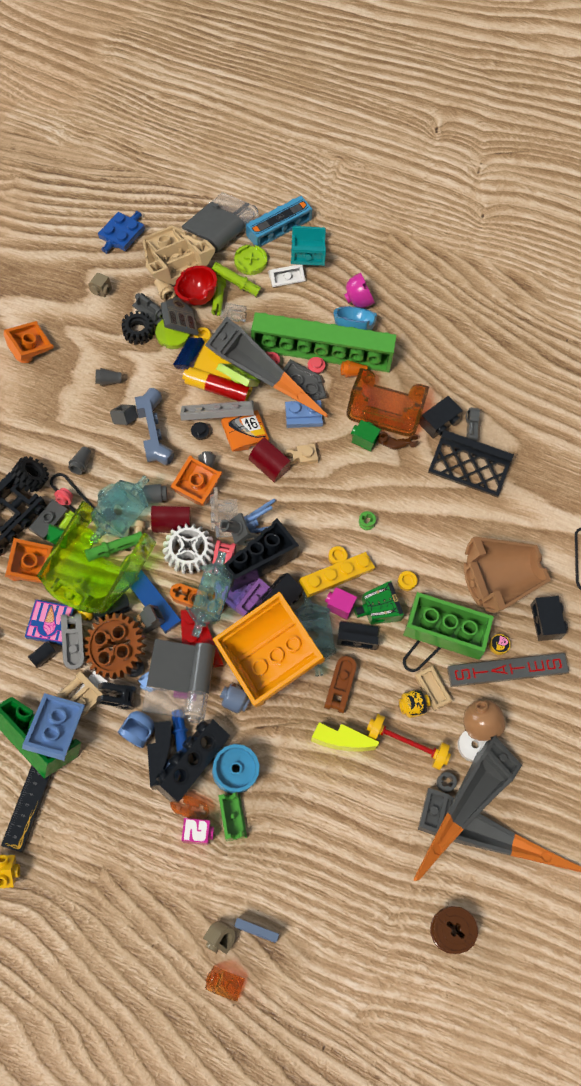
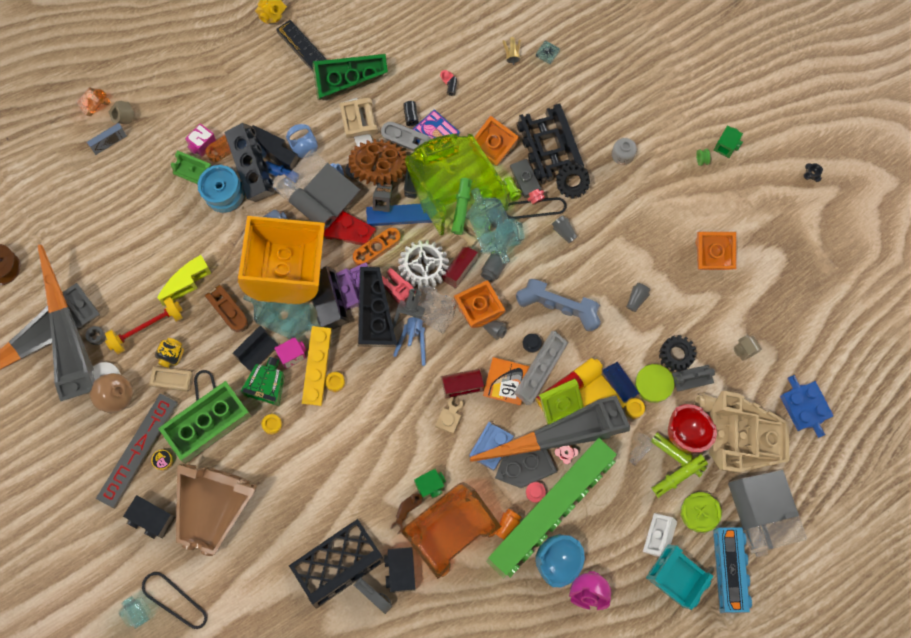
camera: 125 degrees right, 5 degrees up
(53, 727) = (340, 82): medium blue plate -> none
(54, 533) = (505, 171): green slope -> none
(123, 414) = (590, 289): dark grey slope -> none
(123, 693) = (334, 147): black piece -> none
(179, 316) = (664, 393): dark grey tile -> none
(205, 608) = (362, 246): clear light blue plate -> none
(371, 523) = (343, 428): bright green bush -> none

